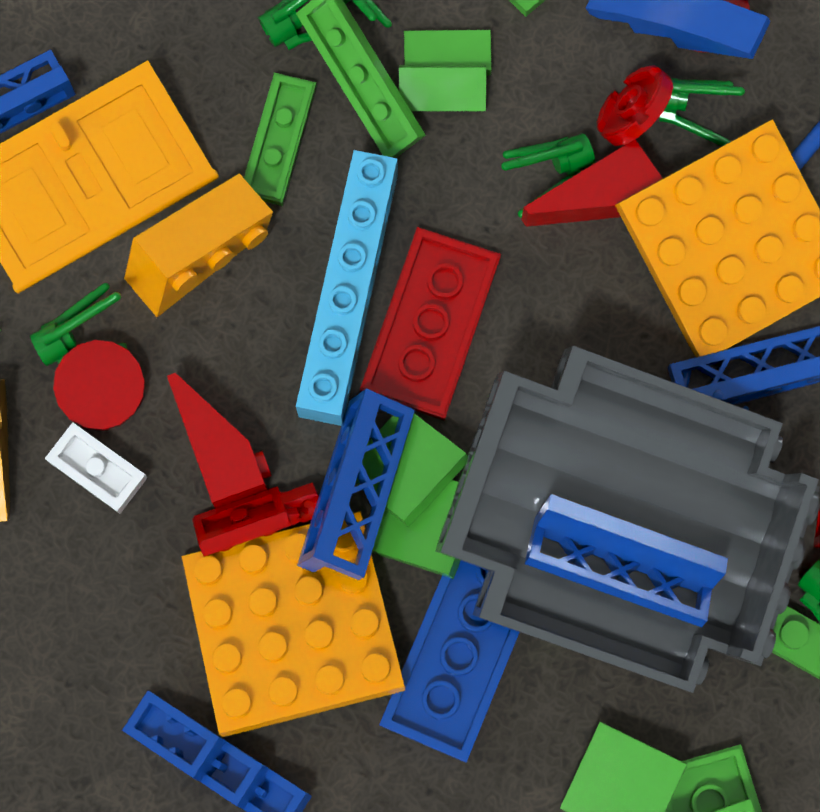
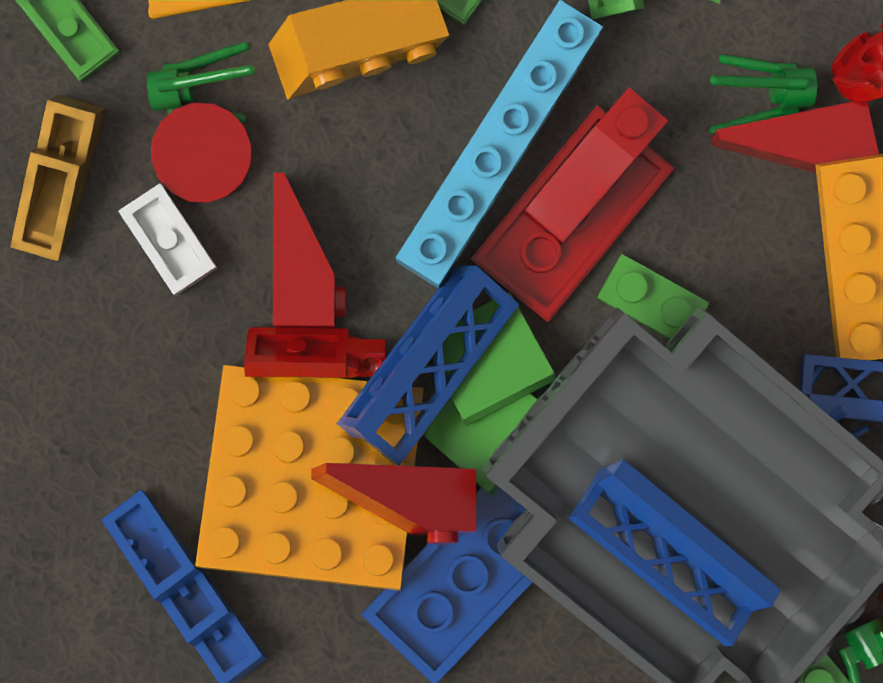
camera: 20 degrees right, 10 degrees up
(380, 601) = (412, 498): none -> red slope
(435, 271) = (596, 165): none -> red slope
(522, 360) = (648, 297): none -> bright green plate

